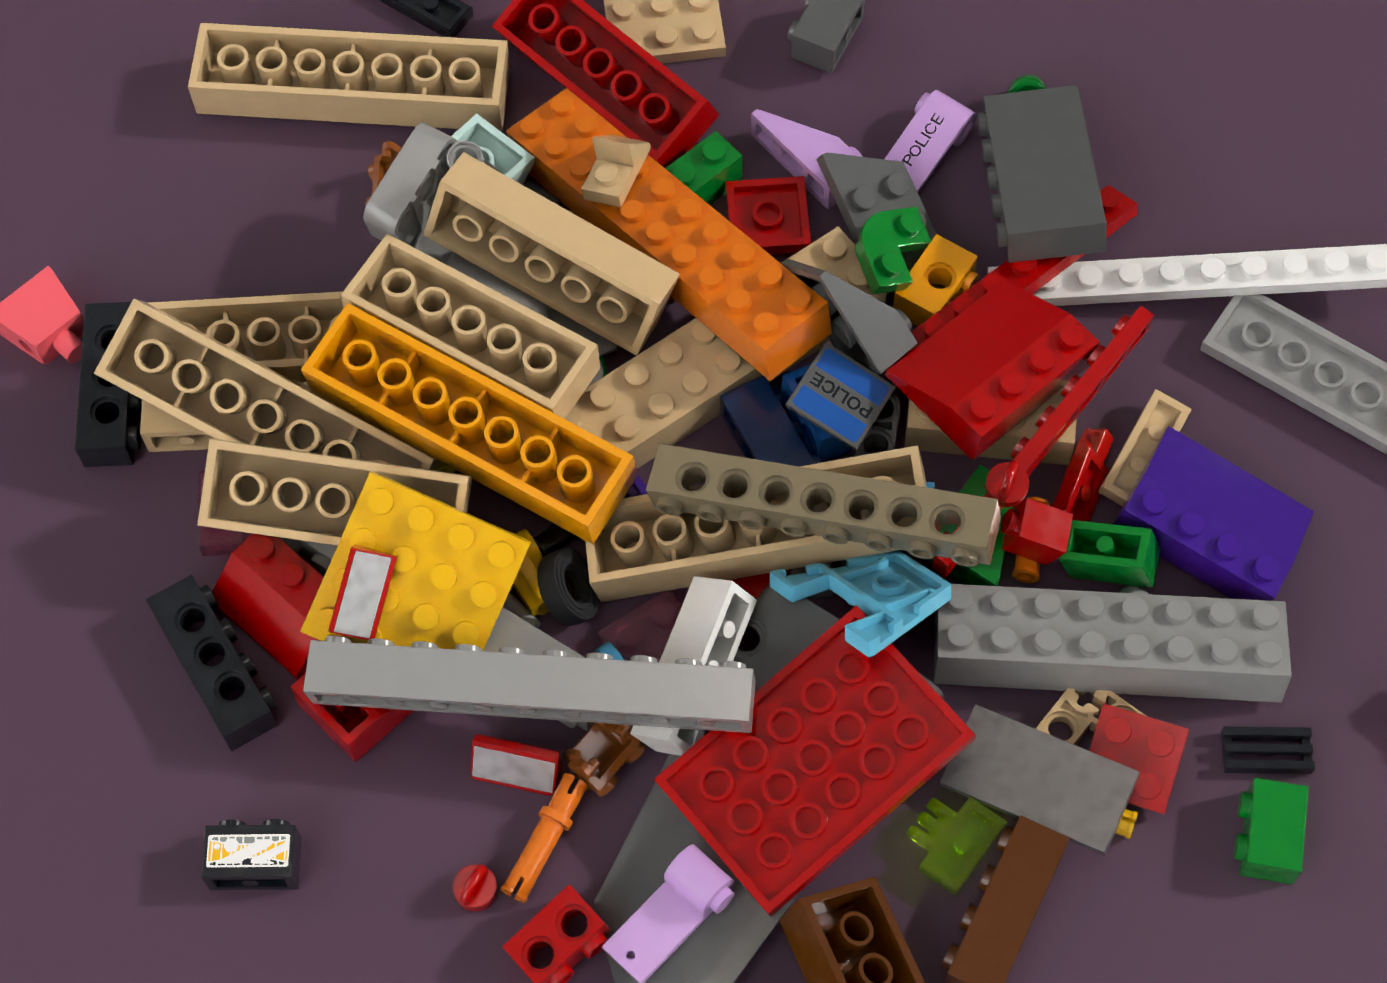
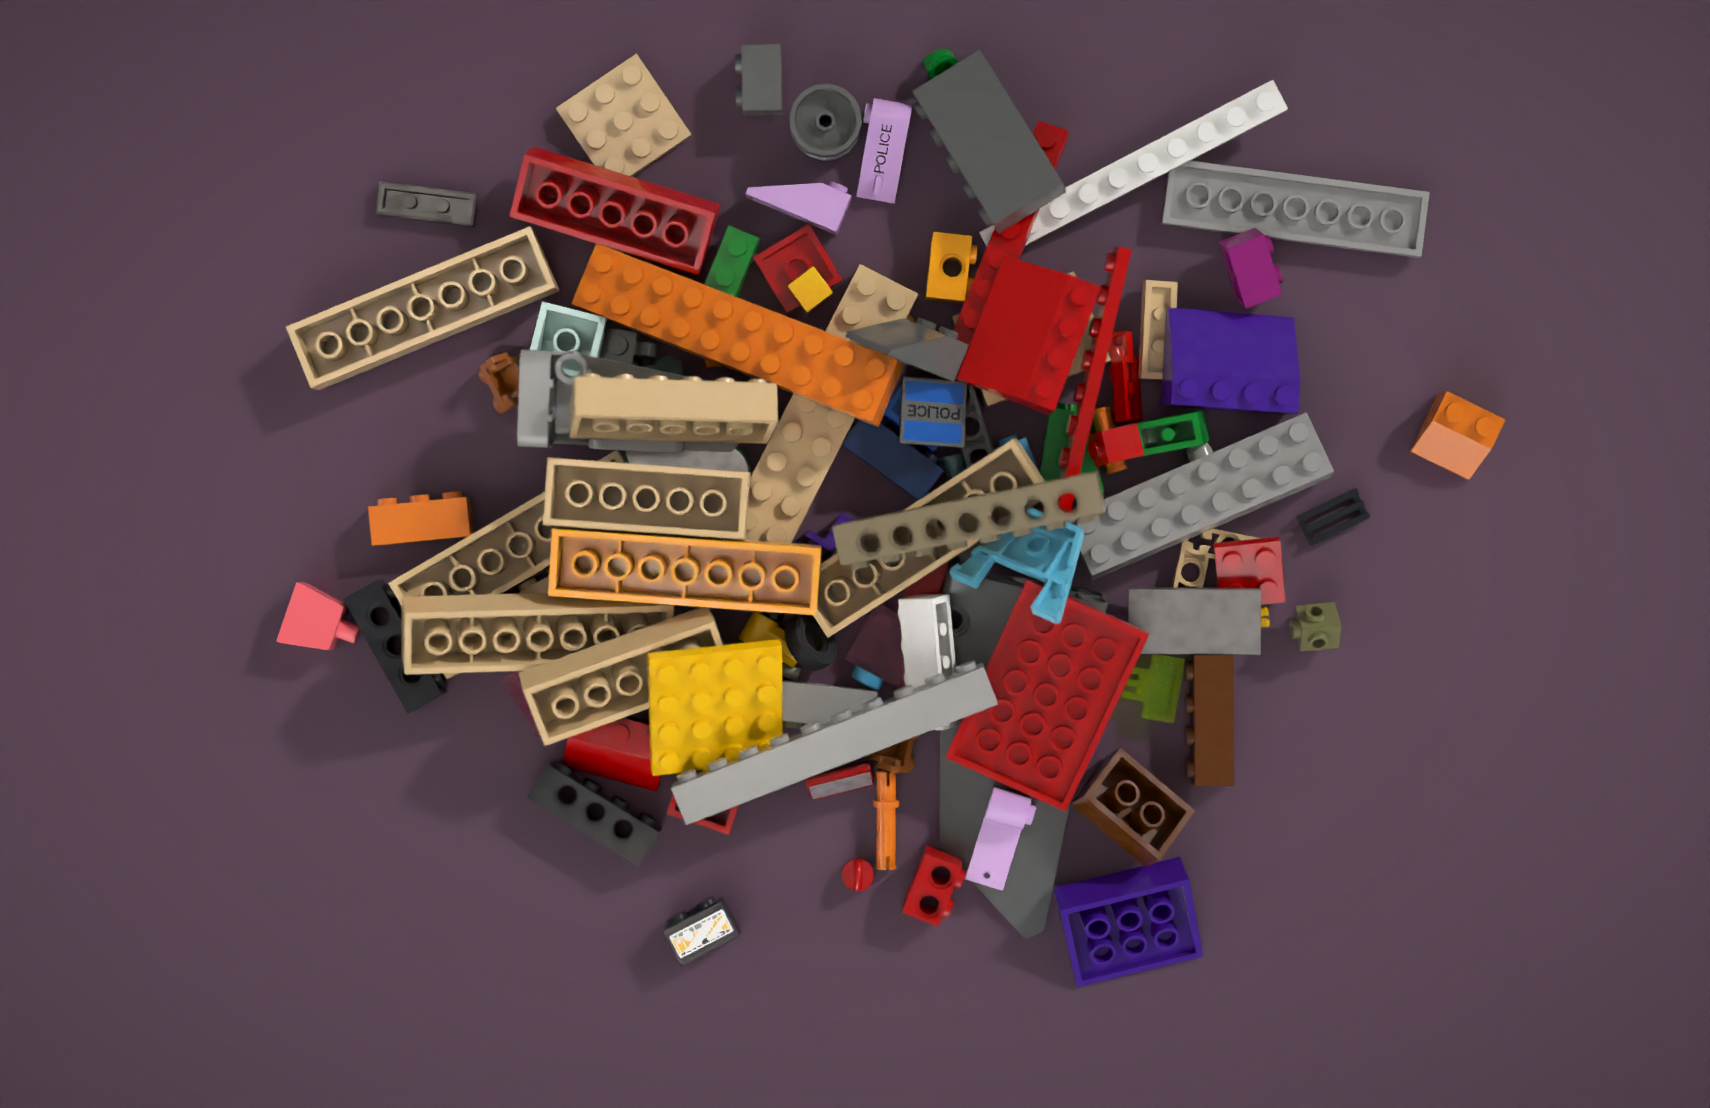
camera: 30 degrees left, 25 degrees up
(212, 270) = (421, 519): none -> orange brick
(362, 593) = (687, 737): flat silver slope -> none
(614, 169) = (680, 310): tan slope -> none
(771, 232) = (810, 289): none -> yellow tile
(868, 187) = (883, 231): dark grey wing -> none
(873, 89) = (817, 105): none -> dark grey wheel
(881, 246) = (900, 269): green plate -> none
(1007, 483) = (1086, 434): red tile -> none
(1190, 859) = (1316, 626): none -> olive brick
(1272, 830) = (1360, 577): green brick -> none
(1287, 427) = (1251, 267): none -> magenta brick

